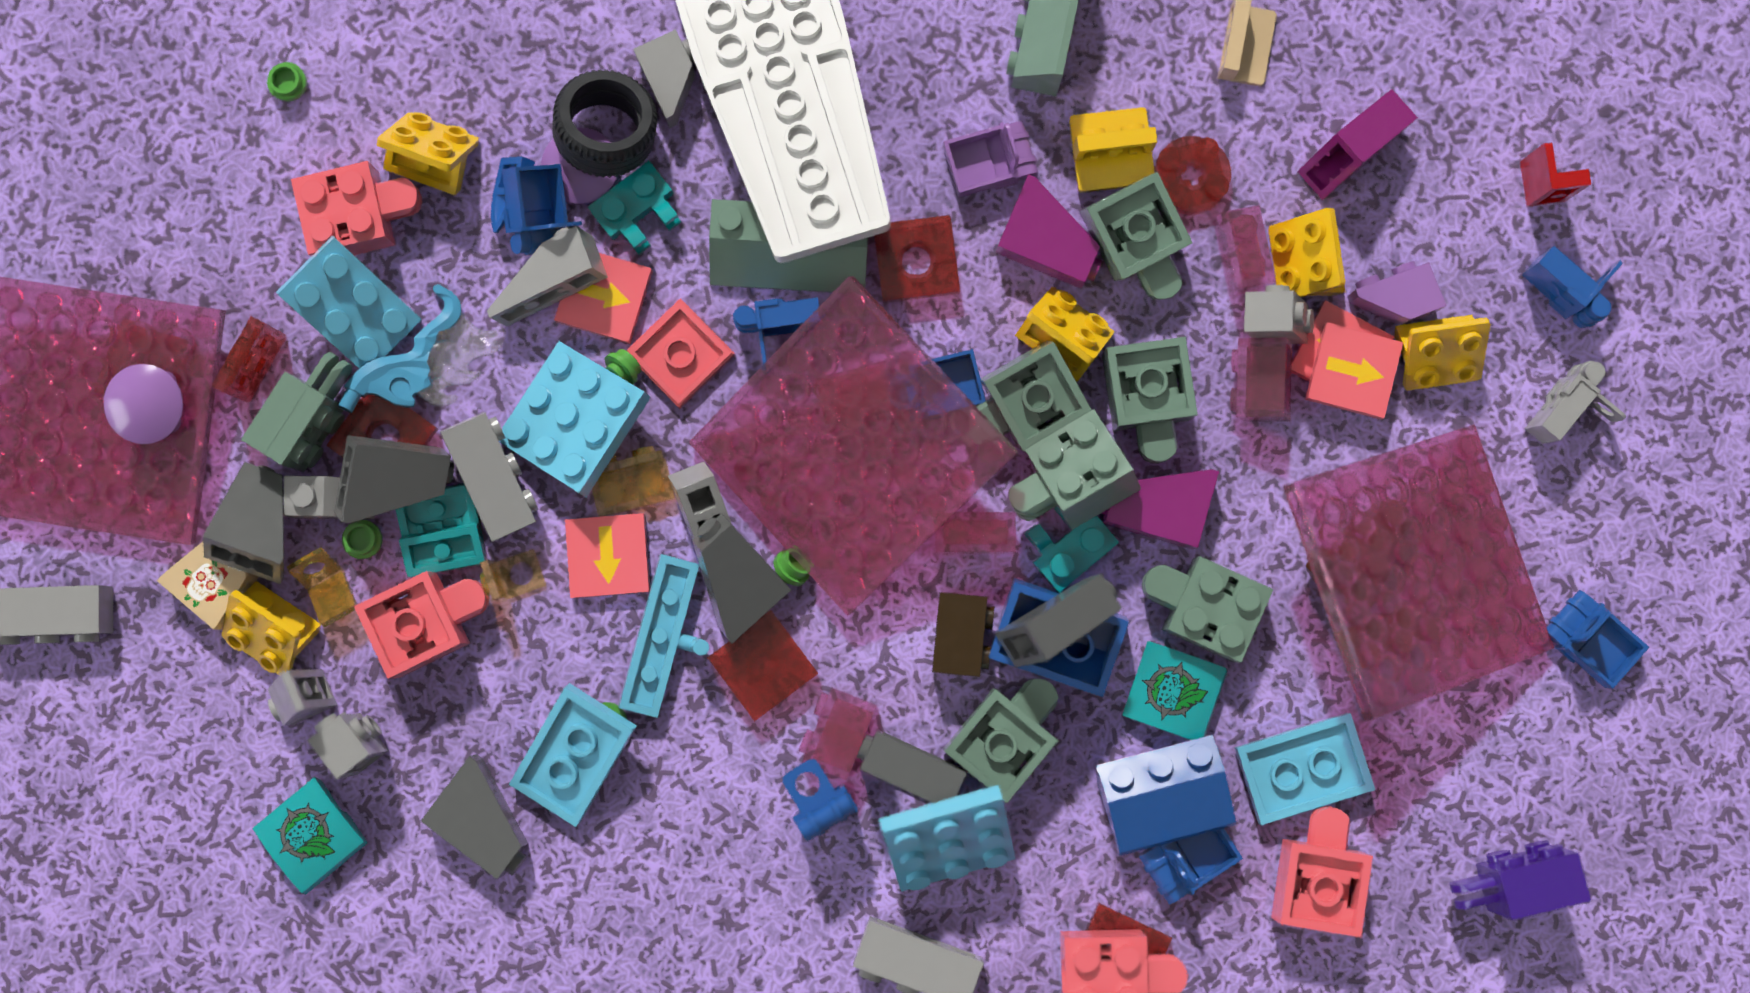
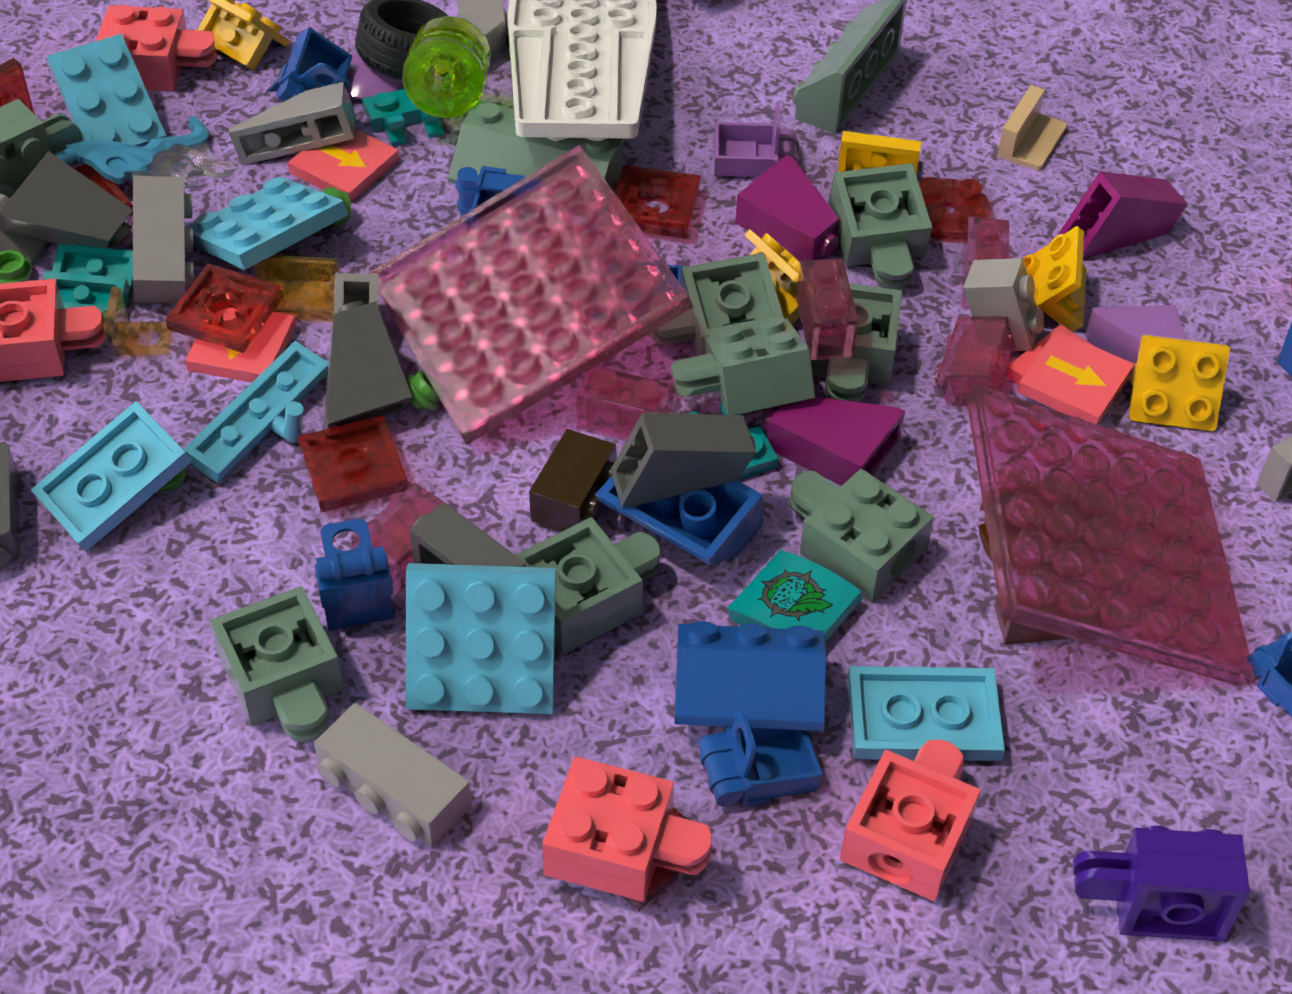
camera: 15 degrees right, 35 degrees down
(561, 518) = (221, 289): none -> clear red piece
(671, 178) = (450, 47): none -> clear neon green wheel
(680, 353) = (394, 217): coral tile -> none
(797, 896) = (280, 662): none -> sand green brick
(1131, 402) = (826, 309): none -> clear pink brick

